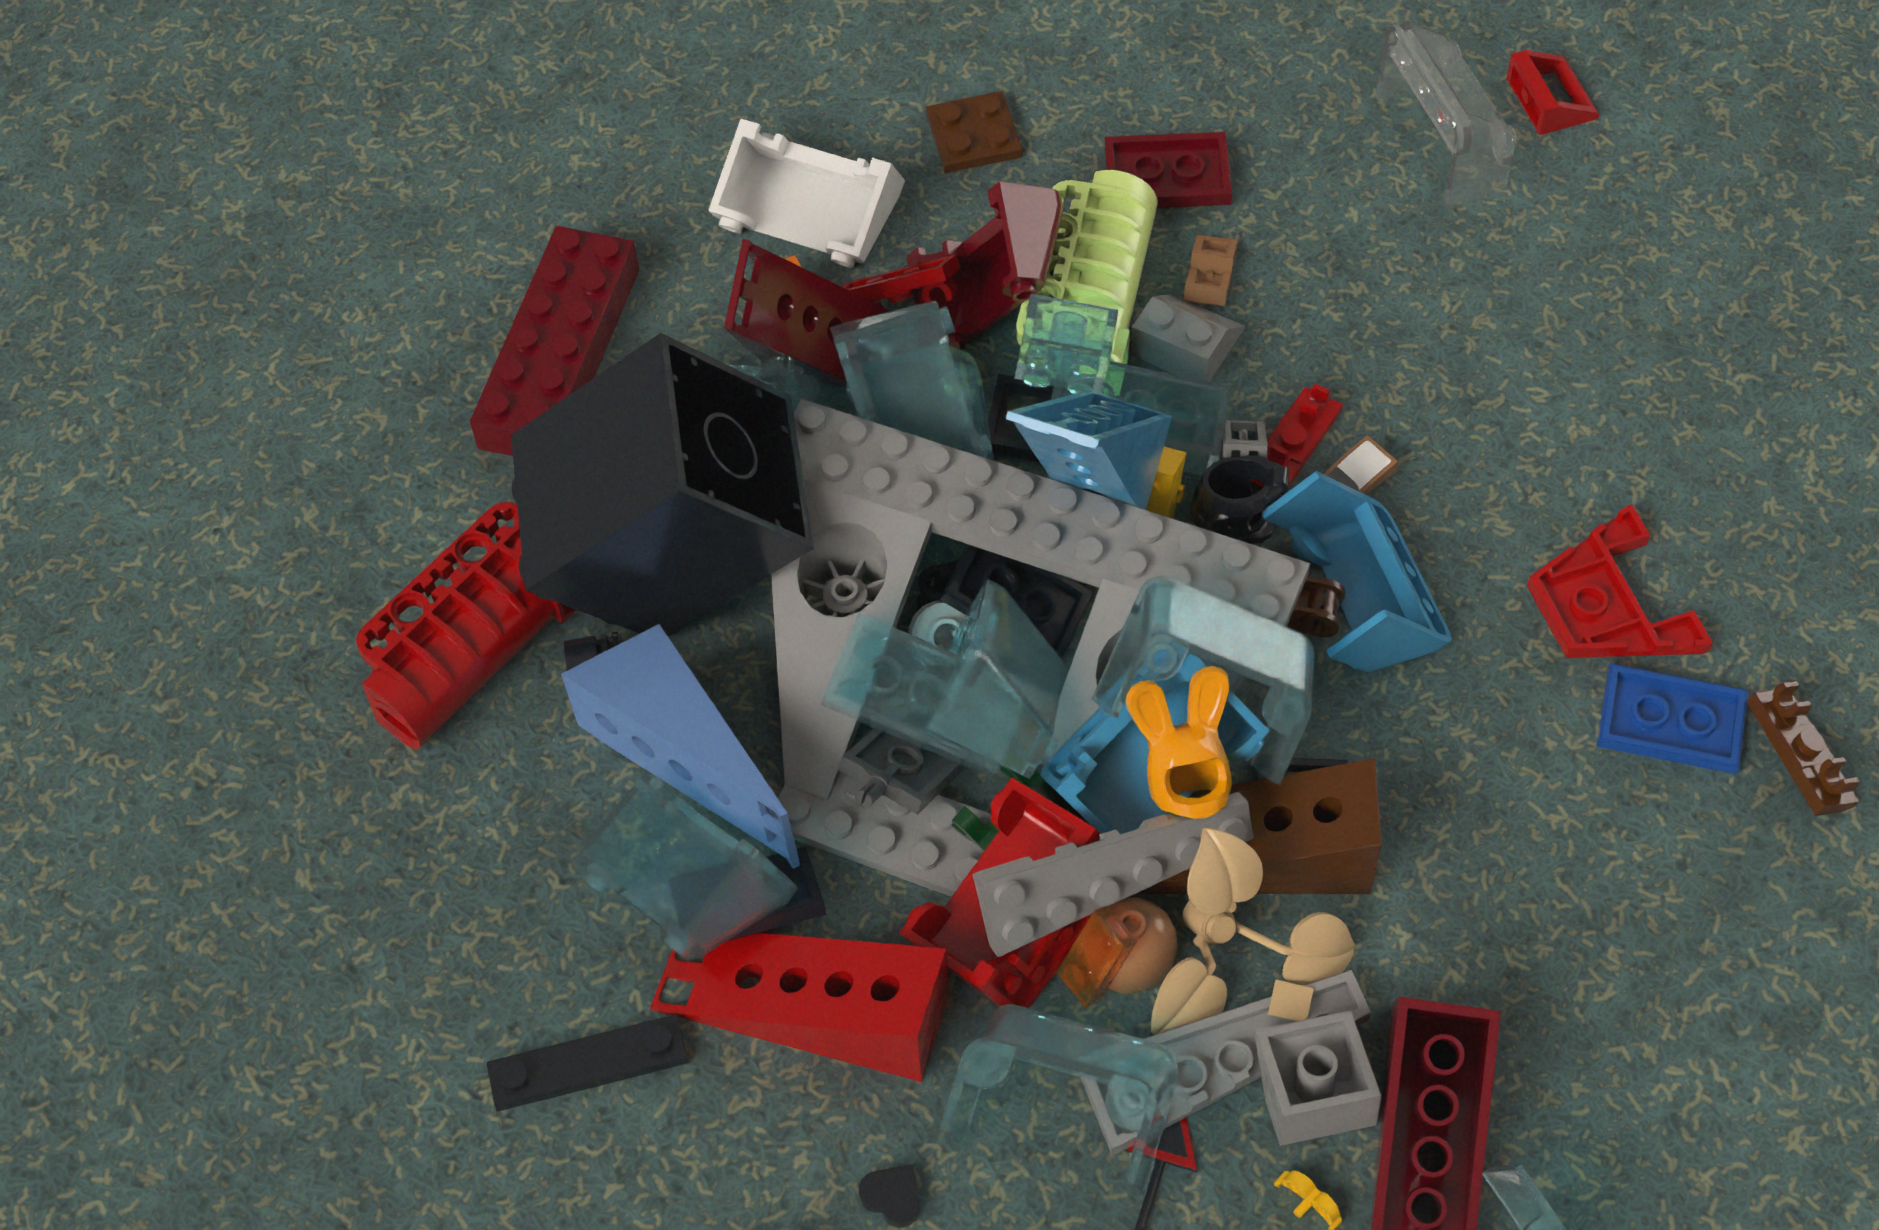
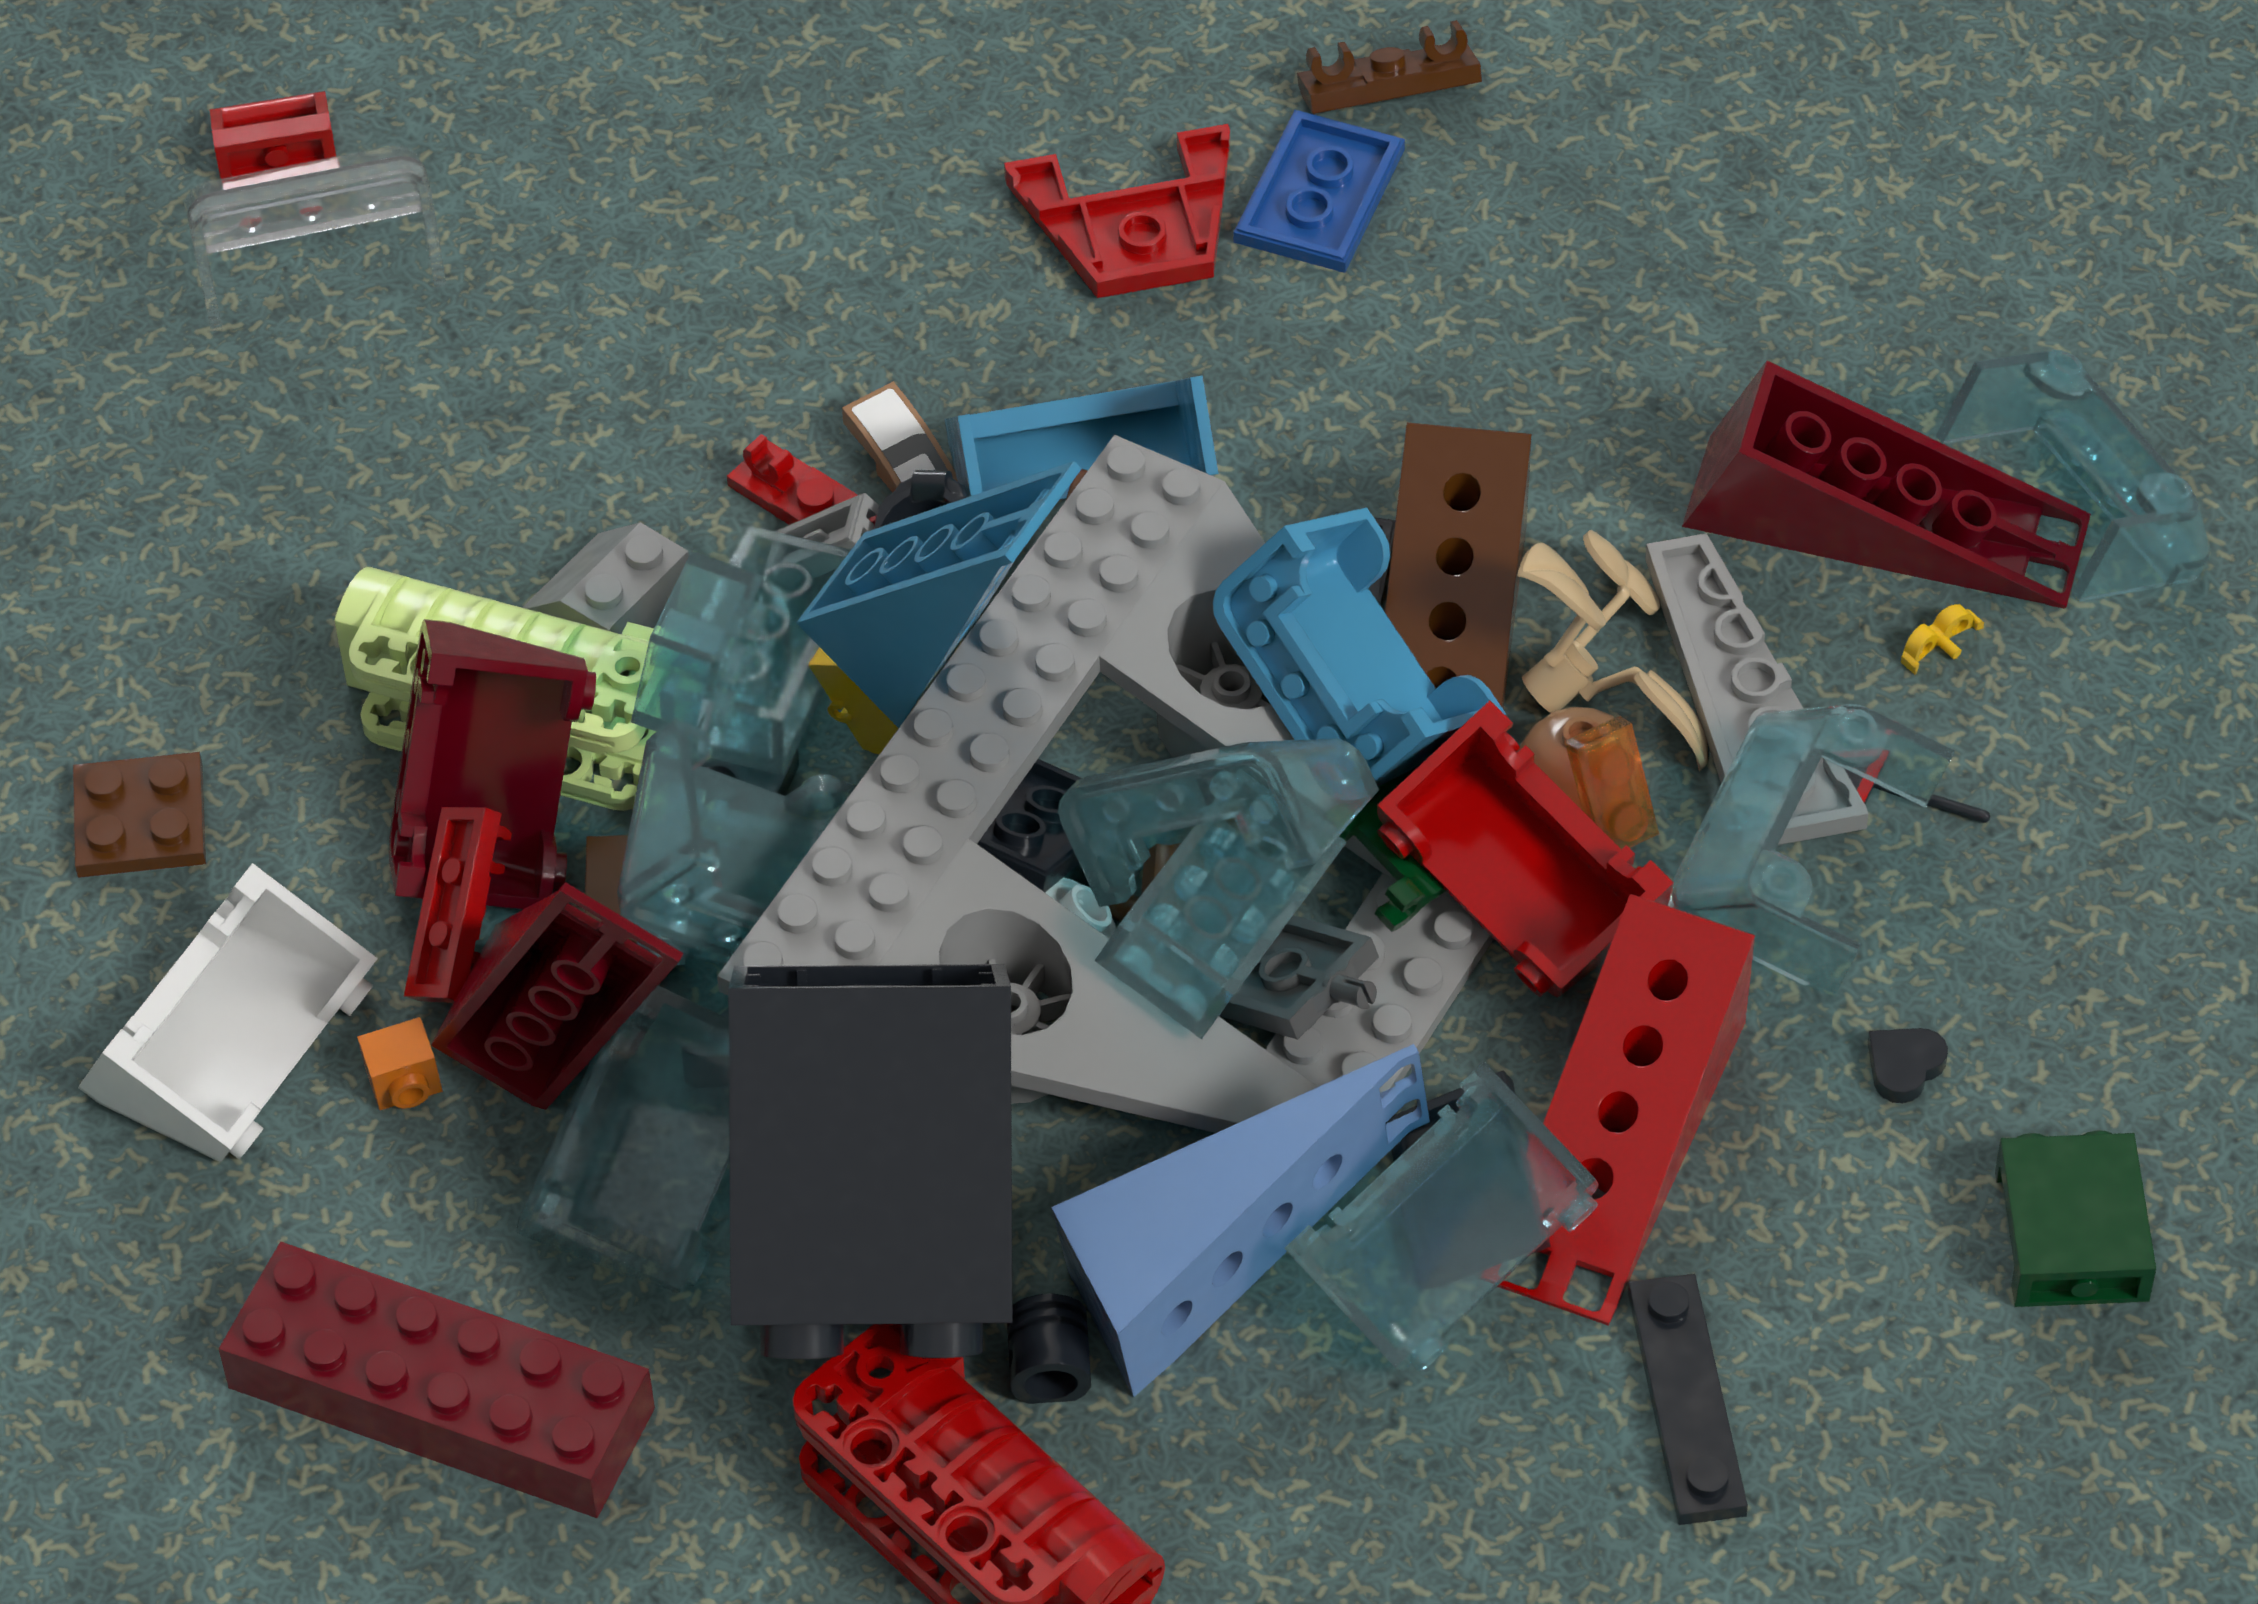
camera: 85 degrees left, 5 degrees down
(1040, 896) = (1544, 732): light grey wing -> none
(1178, 167) = (290, 580): dark red plate -> none
(1181, 620) = (1258, 570): clear light blue windscreen -> none
(1188, 753) = (1389, 590): light orange piece -> none
(1210, 270) = (485, 557): medium nougat slope -> none
(1290, 1001) = (1685, 608): tan sticker -> none
(1317, 1078) = (1799, 589): light grey slope -> none

